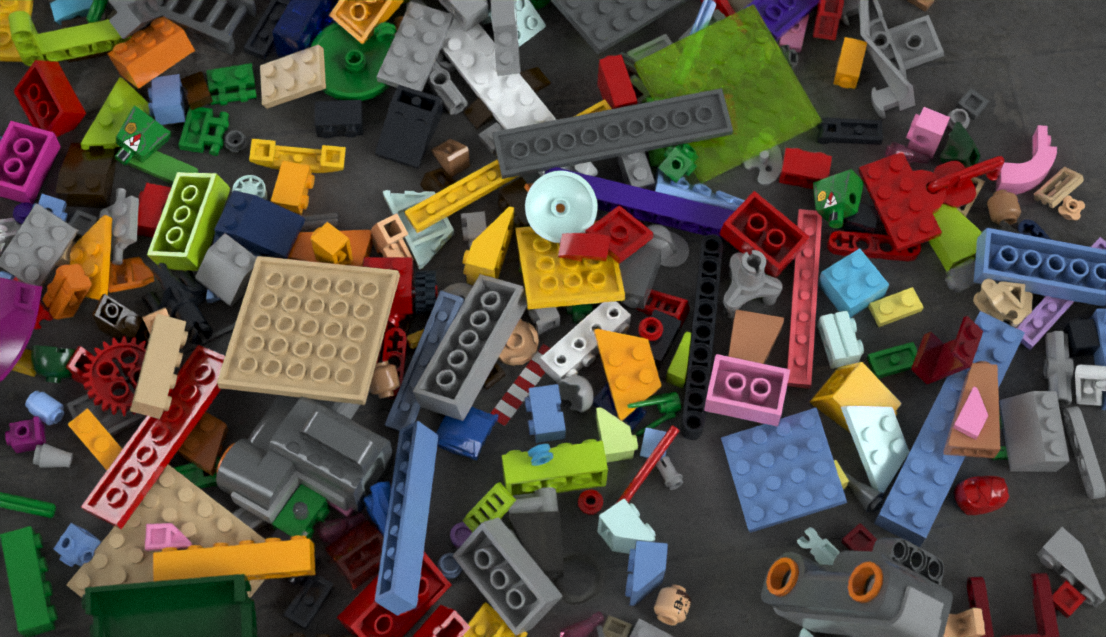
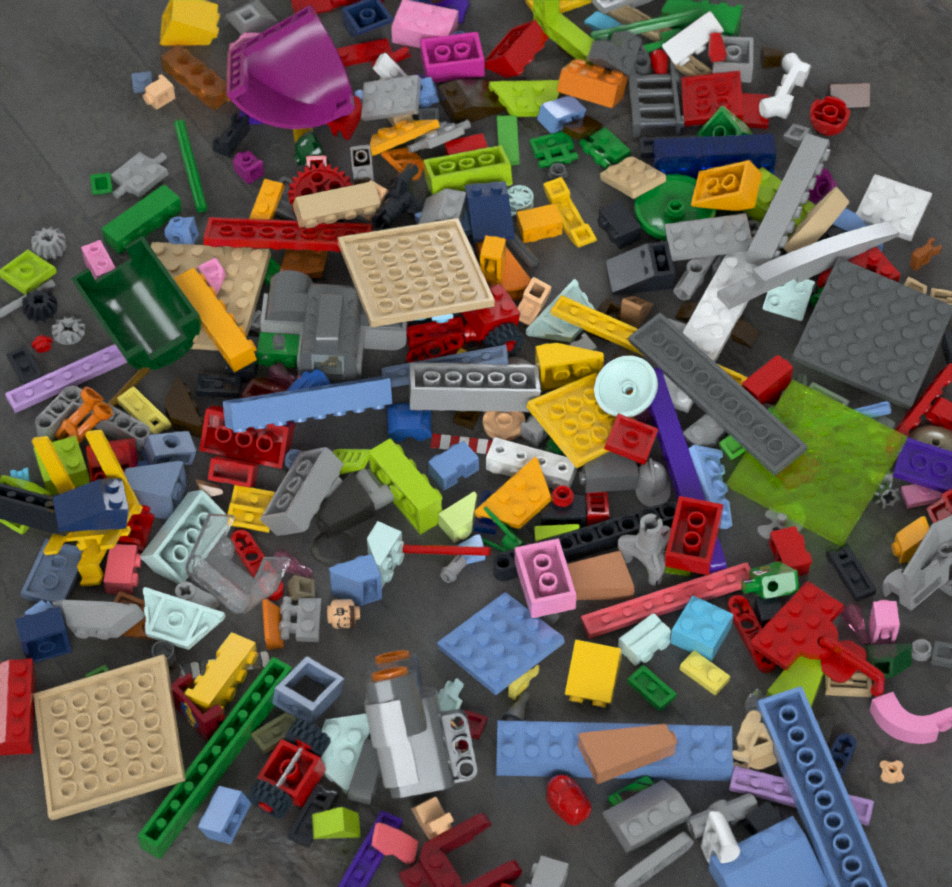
camera: 65 degrees right, 10 degrees down
(46, 407) = (274, 165): light blue brick -> none
(49, 456) = (239, 186): light grey cone -> none
(66, 291) = (366, 129): orange brick -> none
(140, 137) = (516, 110): green torso -> none
(384, 380) = (412, 345): medium nougat head -> none
(385, 32) = (707, 210): green plate -> none
(540, 454) = (401, 458): dark azure bush -> none
(577, 391) = (483, 477): light grey hair -> none
(584, 245) = (601, 417): red slope -> none
(590, 509) = (399, 521): red plate -> none
(679, 161) = (727, 454): green brick -> none
(877, 442) = (565, 694): light aqua wing -> none
(939, 359) = (675, 711): dark red panel -> none
(972, 415) = (614, 738): bright pink tile -> none
(1004, 206) = (852, 715): medium nougat head -> none
(1061, 189) = (905, 753): tan tile -> none

